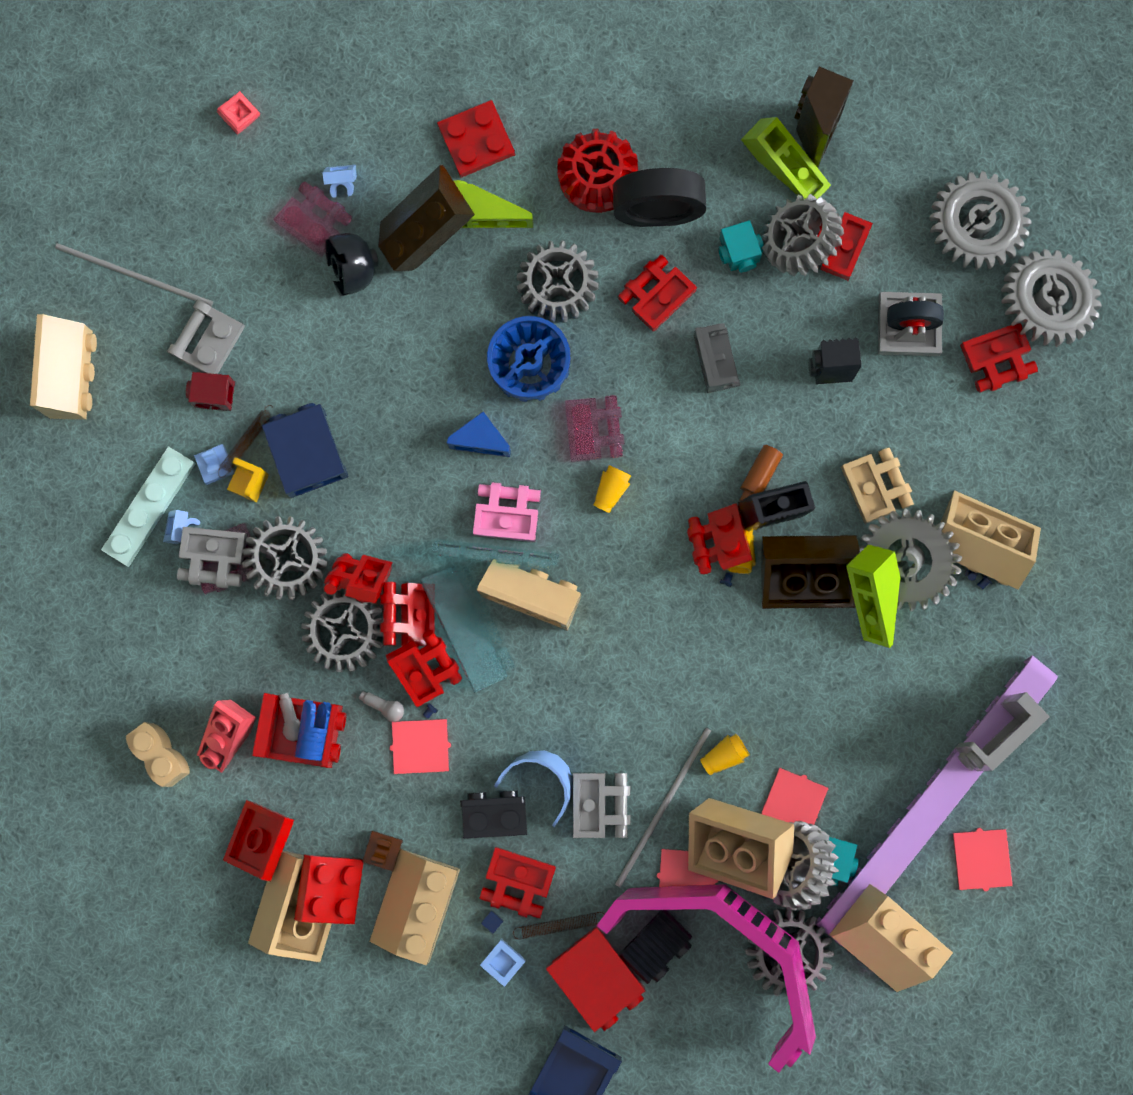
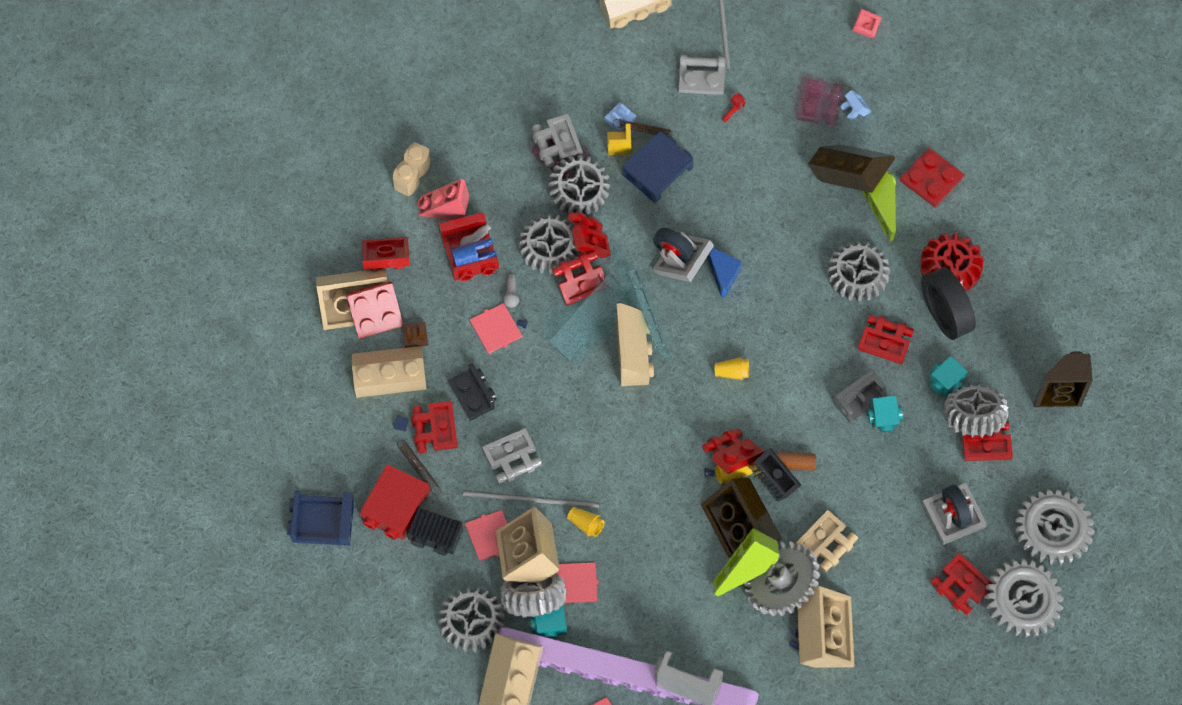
camera: 55 degrees right, 15 degrees down
(148, 506) = (571, 91): light aqua plate -> none
(176, 521) = (572, 110): light blue tile -> none
(210, 390) = (668, 92): dark red brick -> none
(264, 313) = (737, 100): none -> red hand
(352, 261) = (800, 137): black cylinder -> none
(415, 673) = (542, 300): red plate -> none
(439, 478) = (680, 254): none -> light grey plate
(503, 521) = (674, 311): bright pink plate -> none
(503, 962) = (377, 438): light blue tile -> none
(547, 339) = (791, 261): blue gear -> none
(555, 764) = (521, 421): light blue piece -> none
(584, 430) = (764, 335): clear pink plate -> none
(752, 340) = (885, 413): none -> teal brick
(752, 925) = (467, 604): dark pink panel -> none
(785, 158) = (1026, 381): lime slope -> none
(835, 361) = (897, 470): black brick -> none

